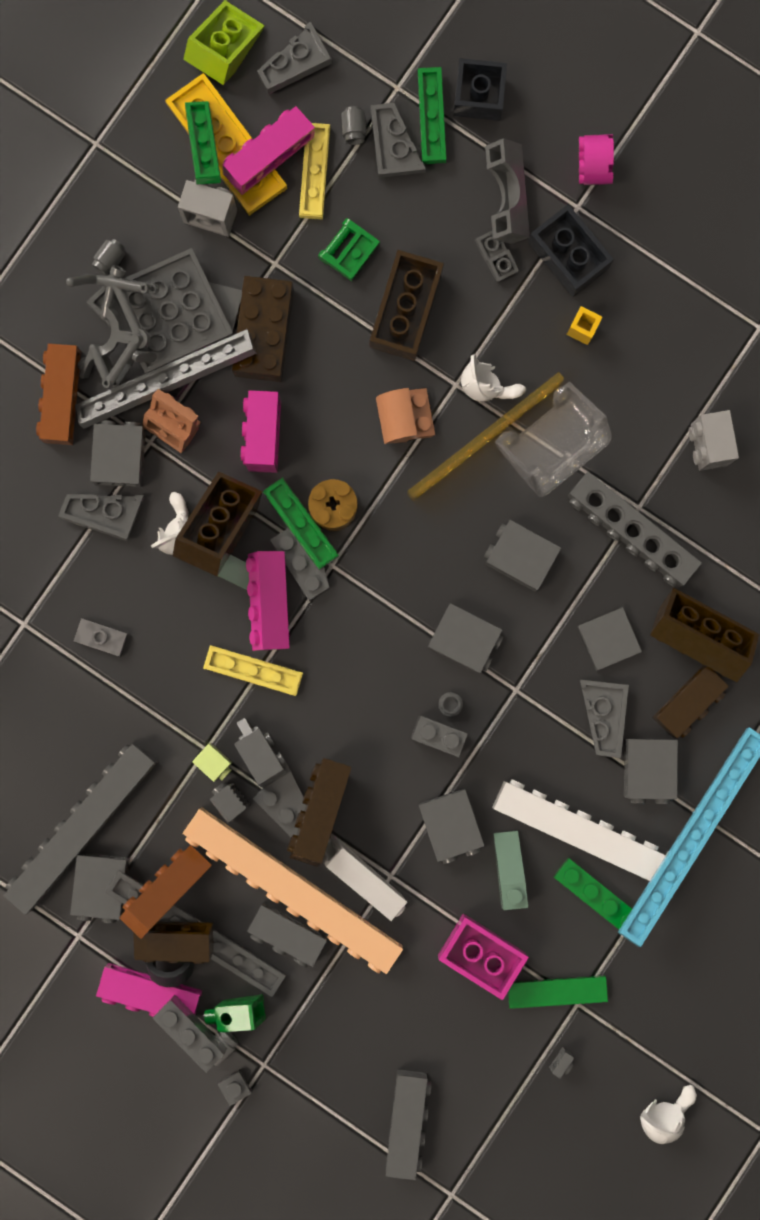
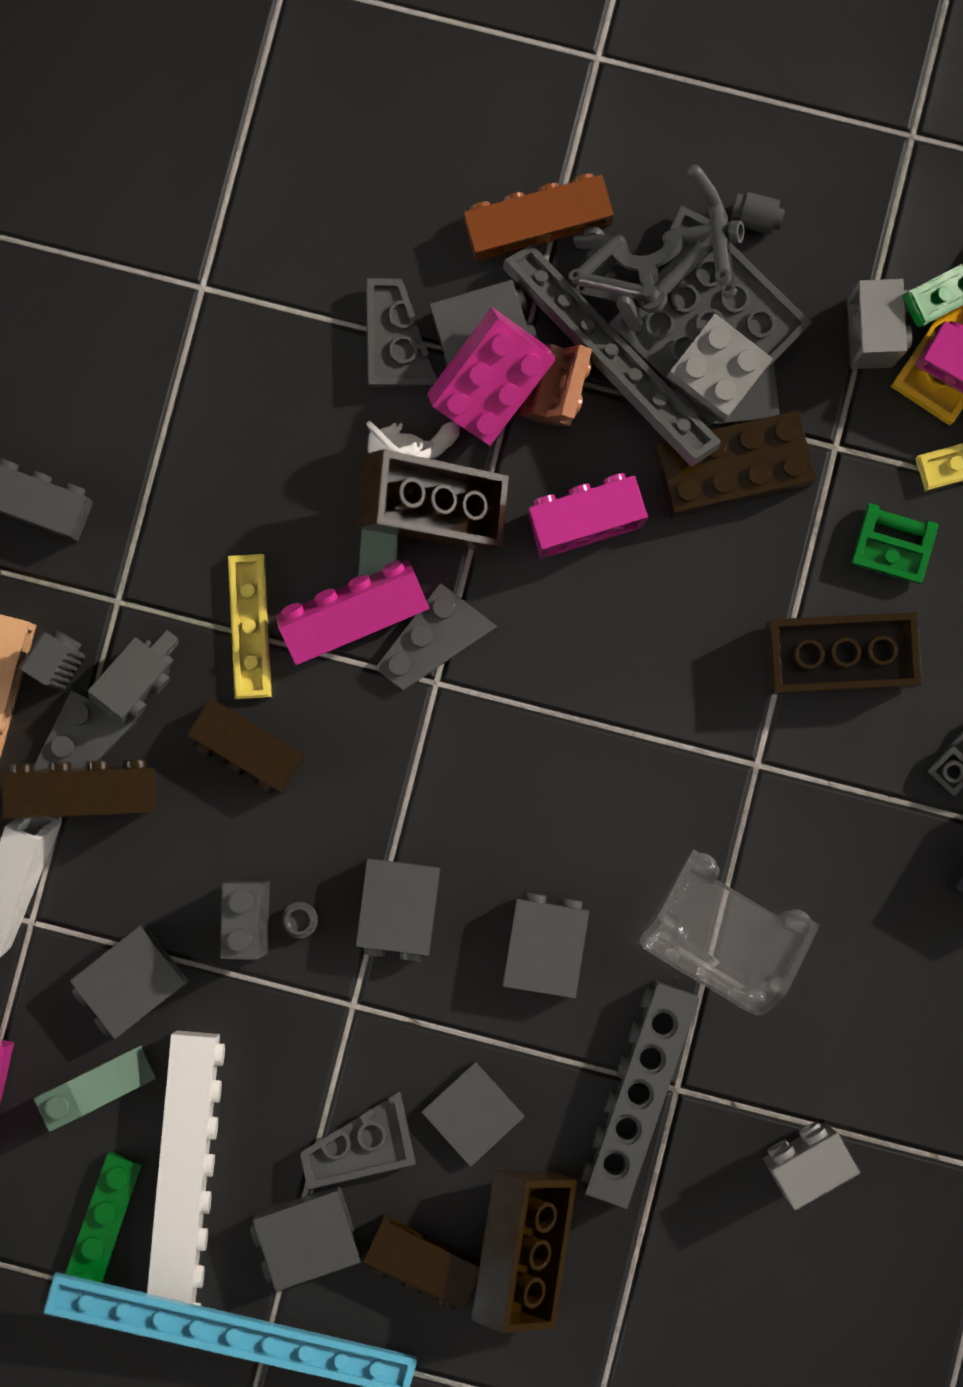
camera: 75 degrees right, 0 degrees up
(100, 637) = (221, 399): flat silver plate -> none
(151, 458) = (490, 376): none -> dark pink brick
(200, 314) = (718, 368): none -> light grey brick
(213, 763) = (100, 618): yellowish green brick -> none
(300, 523) = (477, 617): green tile -> none
(321, 497) = (528, 633): pearl gold brick -> none
(329, 699) = (245, 747): none -> dark brown brick
(405, 415) = (685, 709): nougat brick -> none
(483, 385) = (770, 804): white piece -> none
(486, 436) = (698, 834): clear yellow tile -> none
(584, 325) = (908, 918): yellow brick -> none

